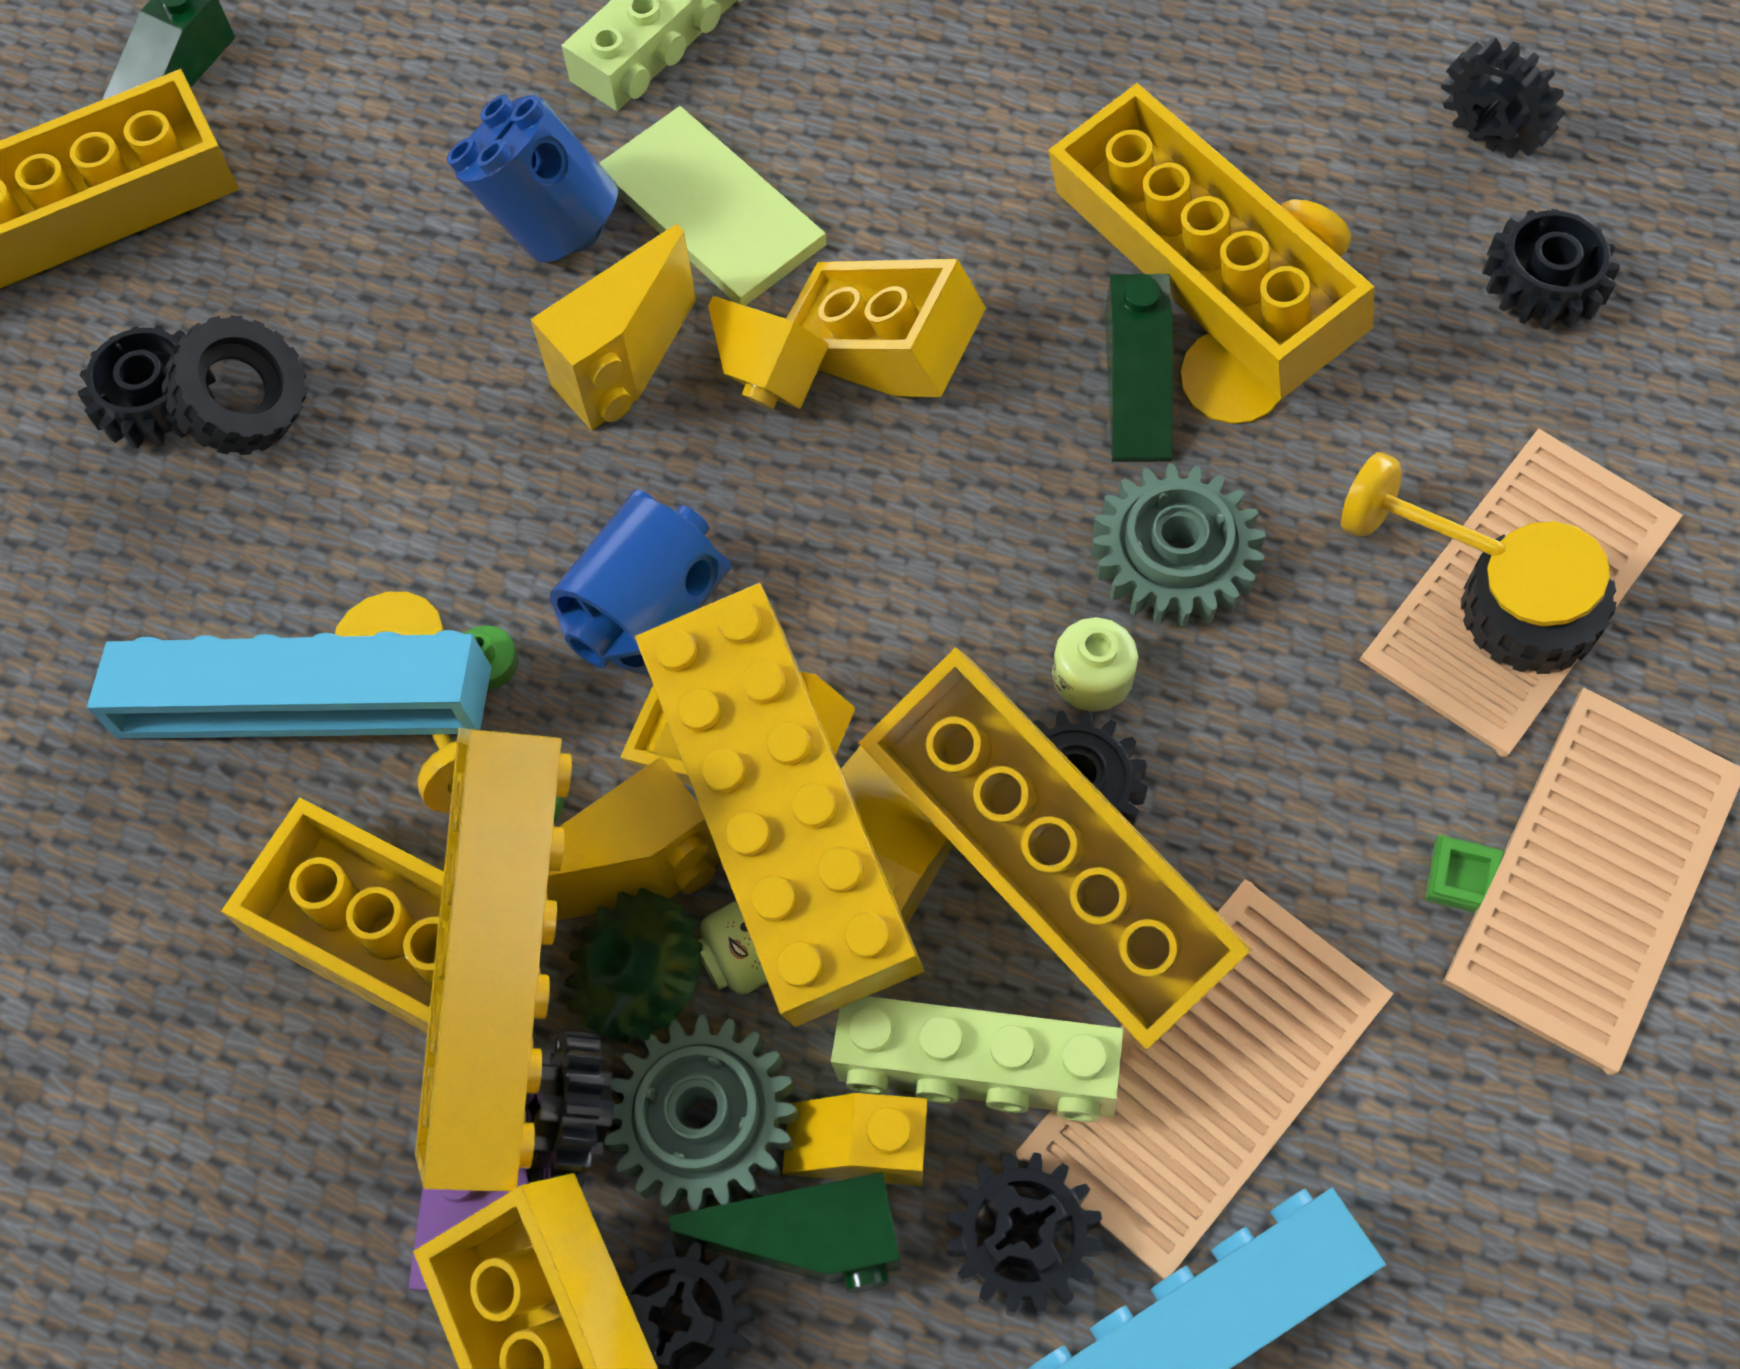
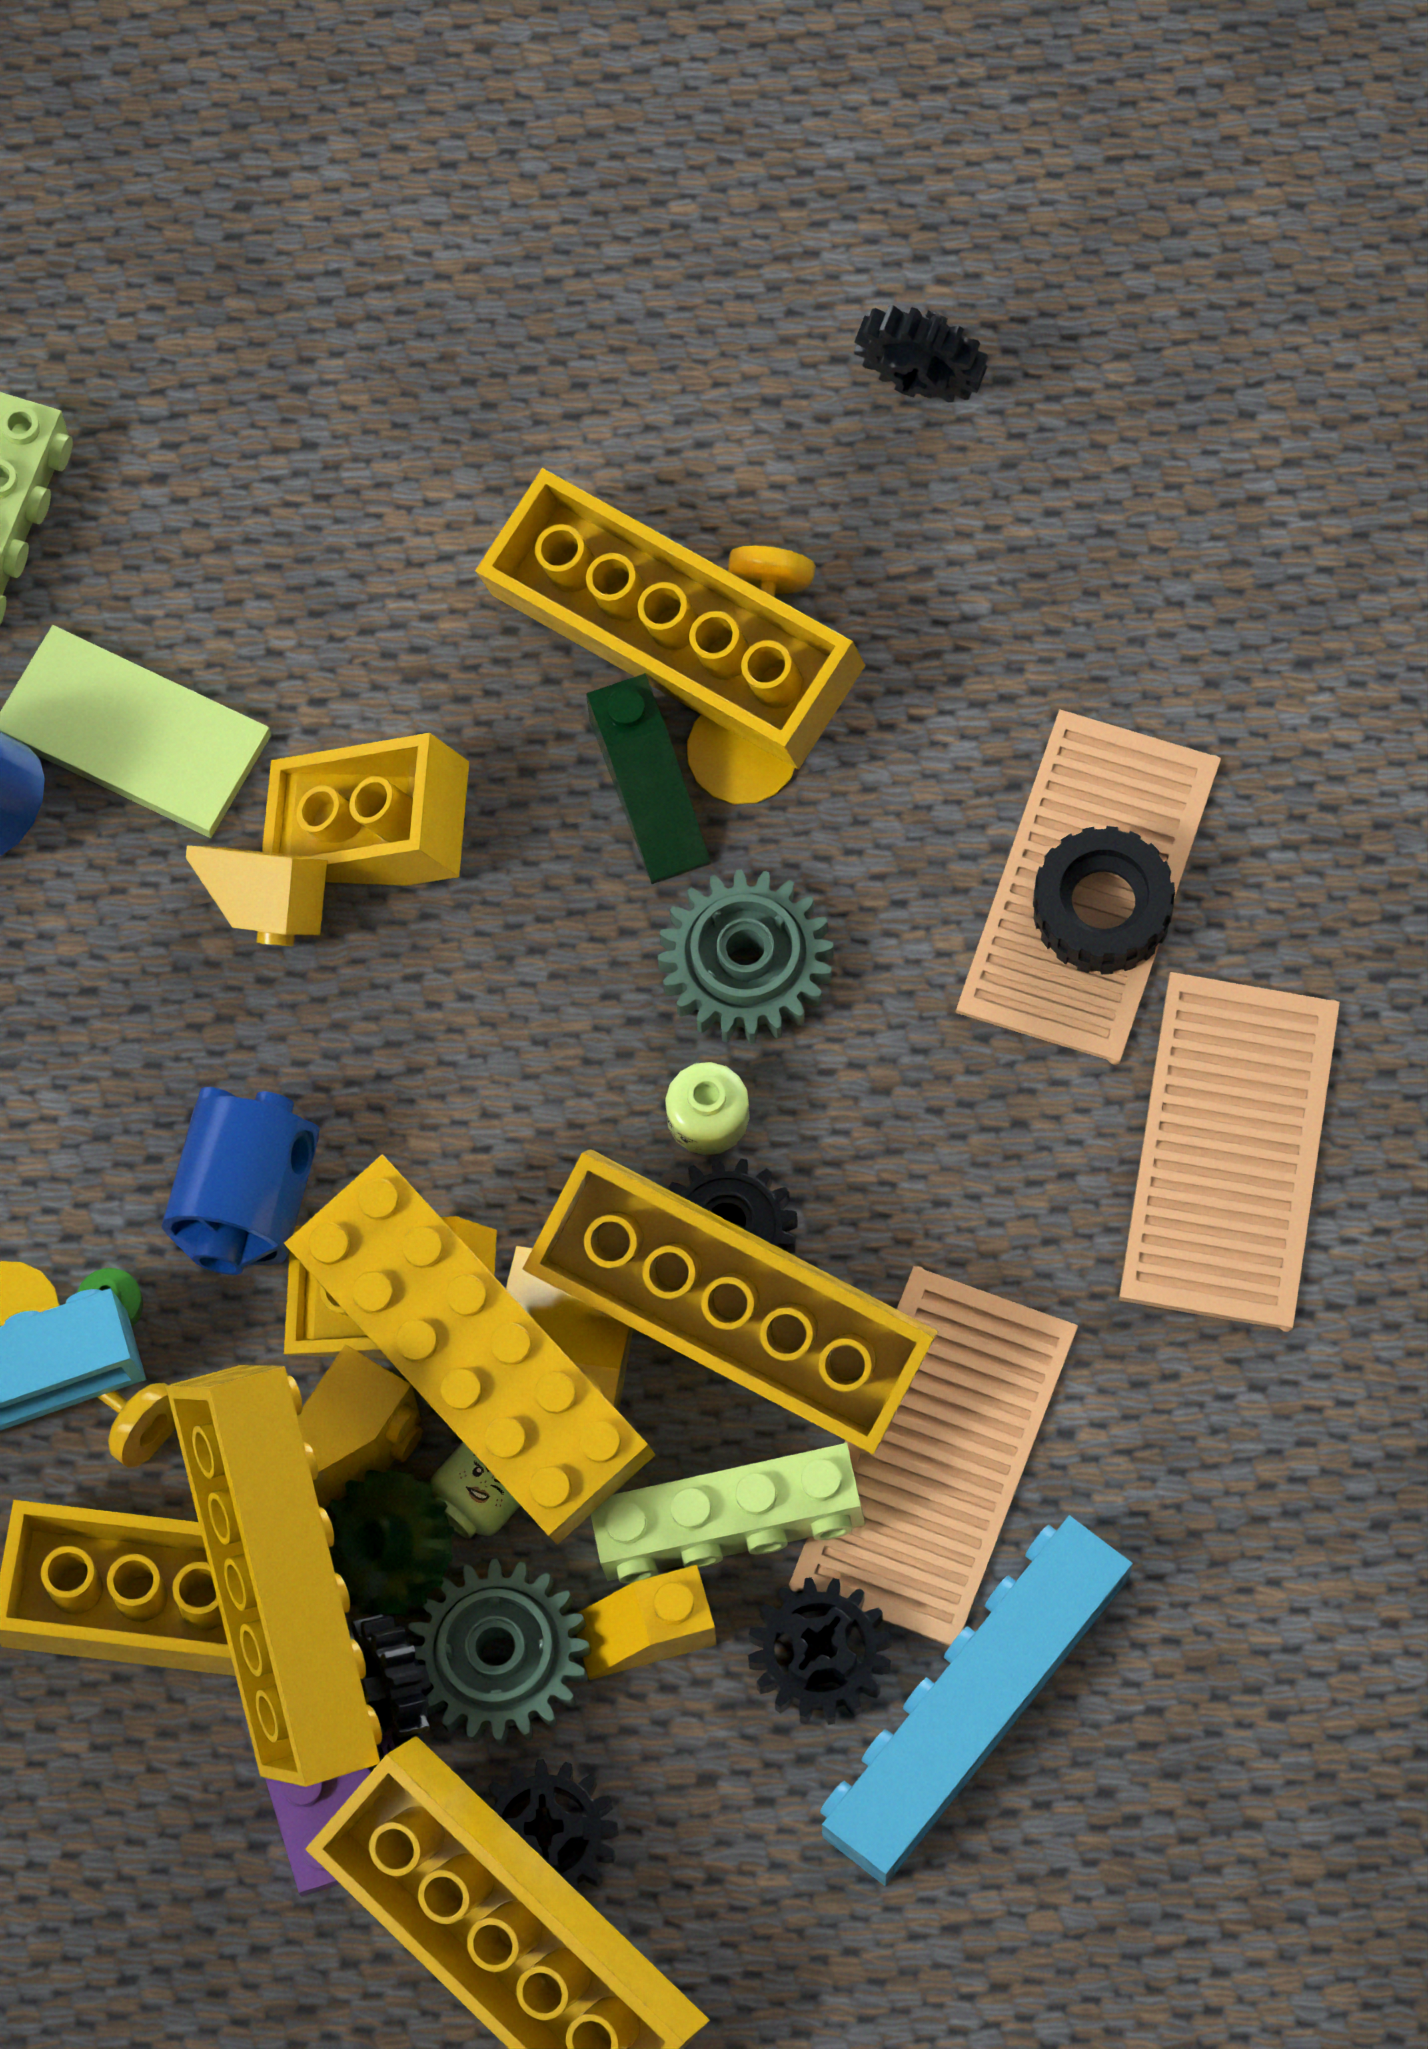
camera: 20 degrees left, 5 degrees up
(617, 328) = (100, 931): yellow slope -> none
(815, 1232) = (634, 1717): dark green slope -> none
(1461, 873) = (1107, 1191): bright green tile -> none
(1535, 573) = (1094, 879): yellow piece -> none
(1551, 267) = (1019, 557): black gear -> none

